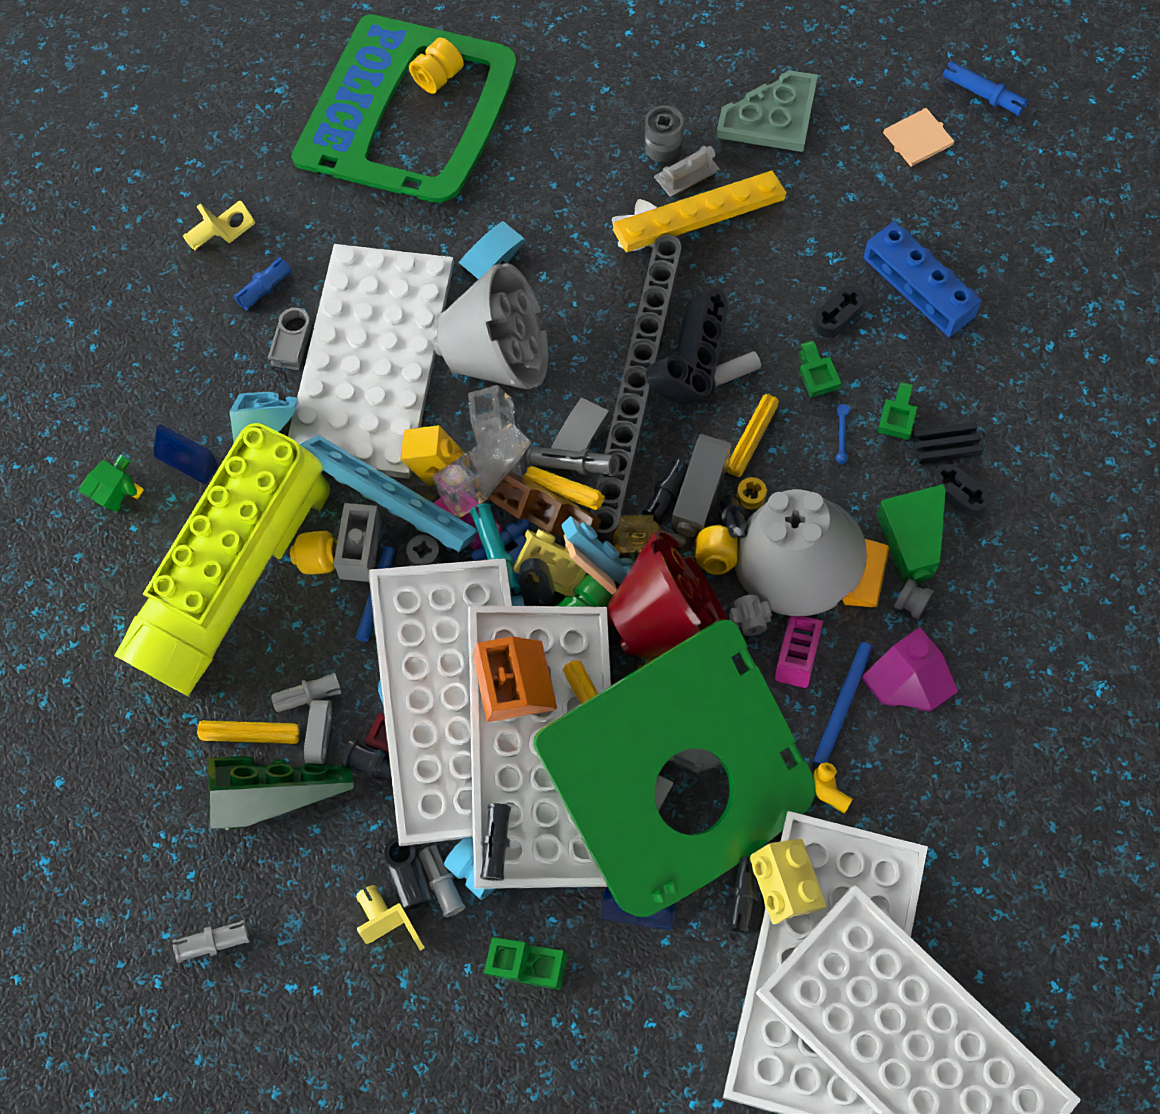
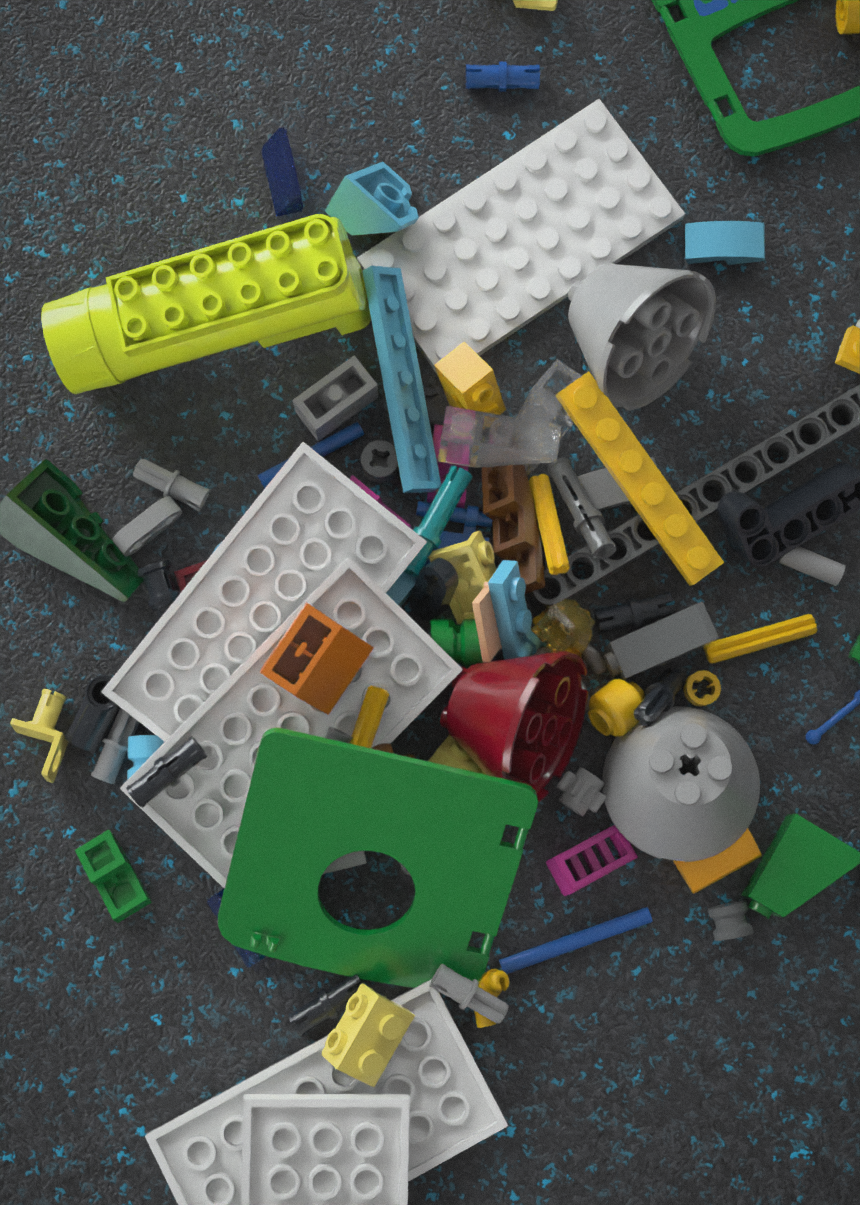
camera: 40 degrees right, 15 degrees up
(110, 483) = (197, 142): green piece -> none
(248, 732) = (98, 469): yellow axle -> none
(287, 345) = (466, 159): light grey piece -> none
(314, 552) = (295, 369): yellow head -> none
(588, 409) = (639, 479): none -> yellow plate
(818, 794) = (468, 994): none -> light grey axle
(911, 674) = (655, 979): magenta slope -> none

